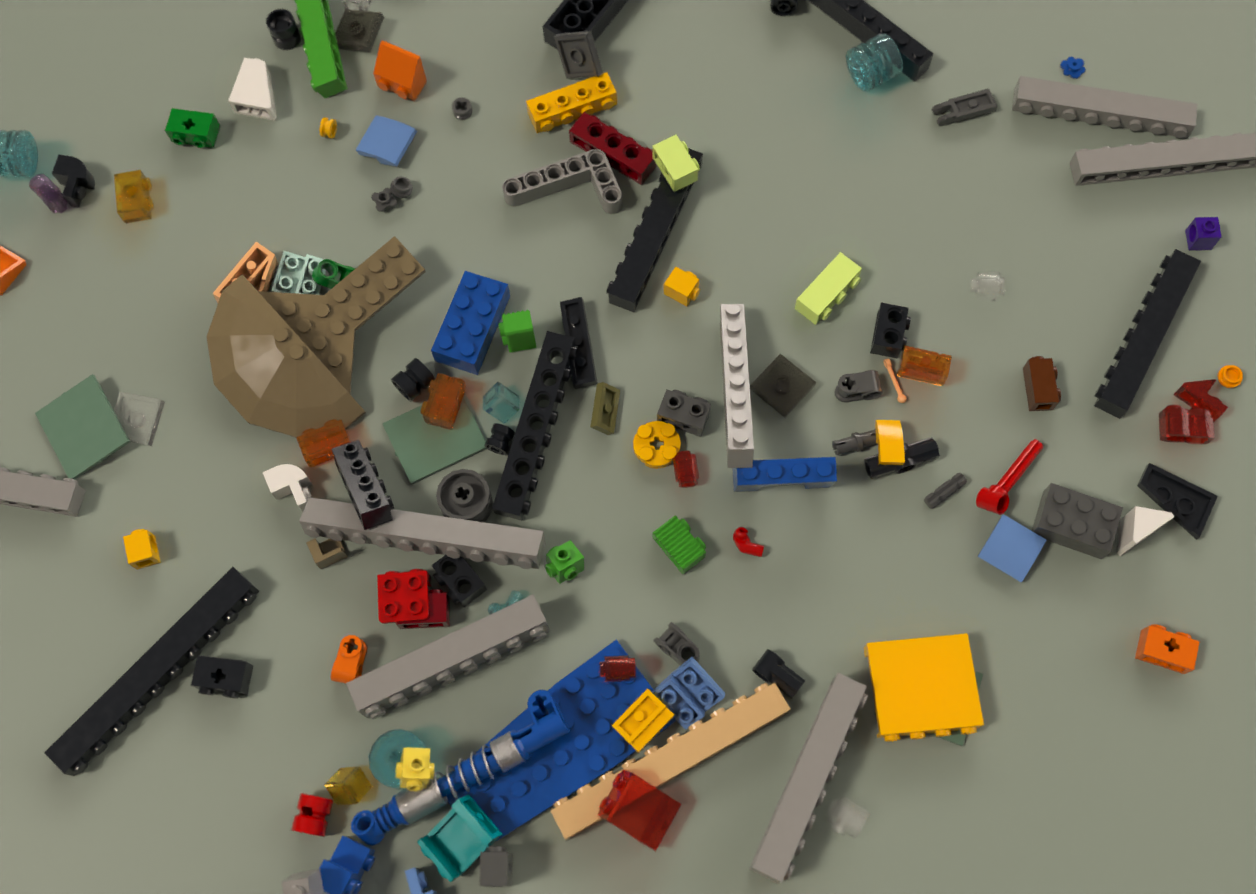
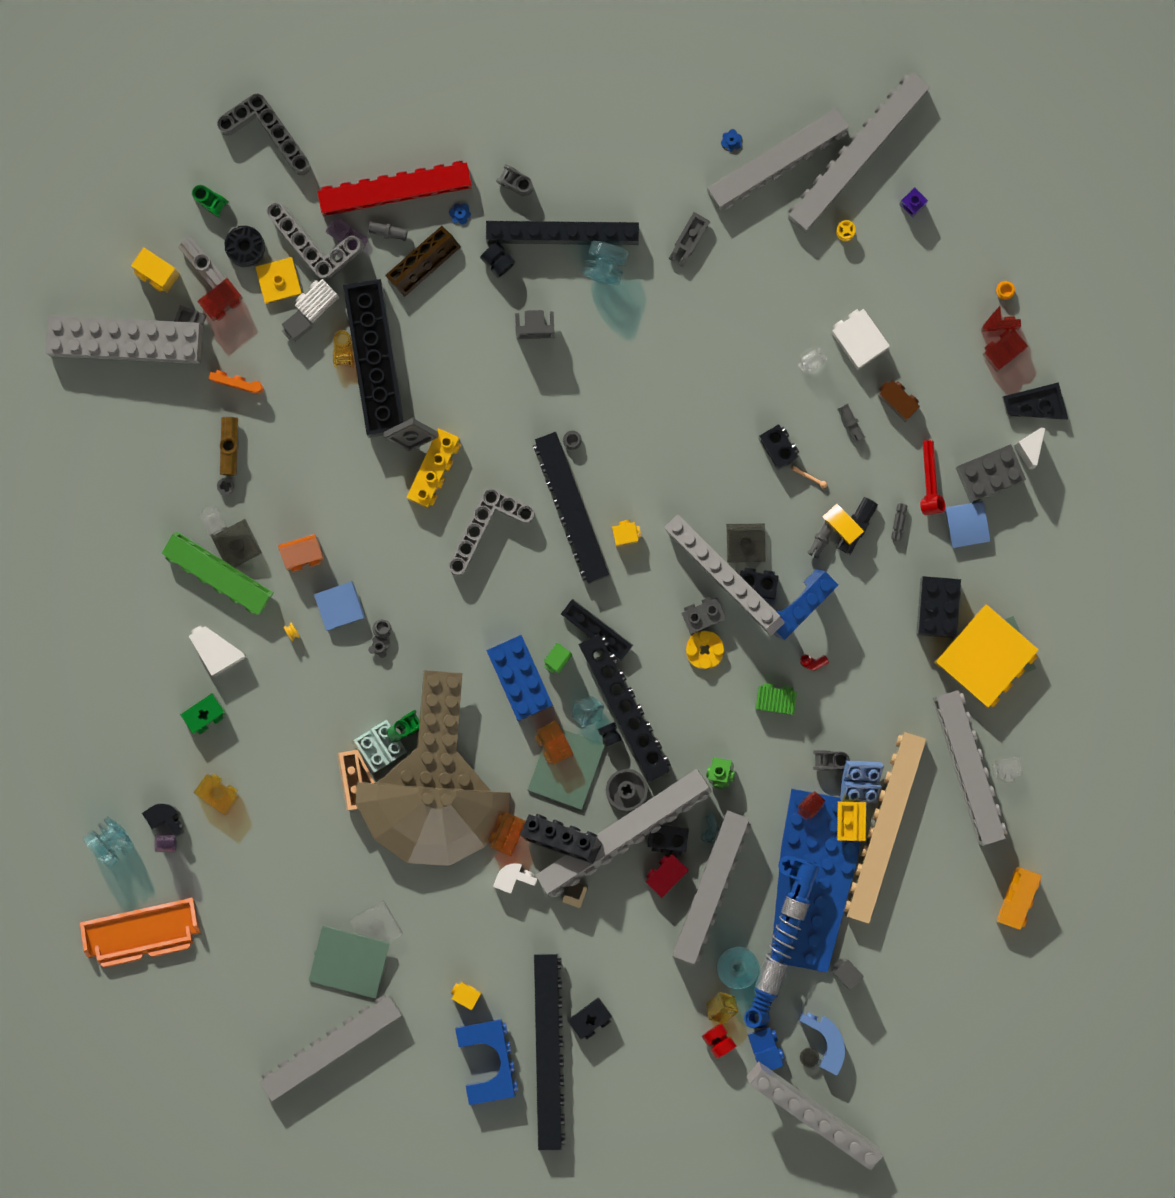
camera: 40 degrees left, 15 degrees up
(86, 660) = (502, 1084): none -> blue arch
(283, 29) = (189, 590): black wheel -> none
(349, 663) = (655, 945): orange piece -> none
(403, 596) = (649, 878): red bracket -> none
(413, 379) = (521, 747): black wheel -> none
(415, 769) = (757, 964): light yellow brick -> none
(459, 113) = (360, 532): dark grey bush -> none
(459, 838) = (811, 977): teal panel -> none
(605, 408) = (654, 656): olive plate -> none
(637, 169) = (521, 477): dark red brick -> none
(638, 809) = (894, 871): clear red panel -> none
(675, 162) = (550, 458): yellowish green brick -> none
(686, 469) = (737, 650): clear red brick -> none
(710, 178) = (572, 440): none -> dark grey plate
(761, 63) = (534, 325): none -> dark grey panel
(766, 425) = (759, 578): none -> black brick
(773, 670) = (899, 723): black piece -> none
(828, 289) = (717, 452): yellowish green brick -> none
(859, 386) = (794, 499): dark grey piece -> none
(915, 597) = (938, 607): none -> black brick
(924, 365) = (820, 454): clear orange brick -> none
(976, 367) = (851, 423): none -> dark grey pin
(1050, 304) = (859, 338): none -> white brick
(1120, 204) = (848, 228): none -> yellow wheel
(1147, 333) = (934, 305): black brick -> none
(1182, 647) = (1095, 515): orange brick -> none

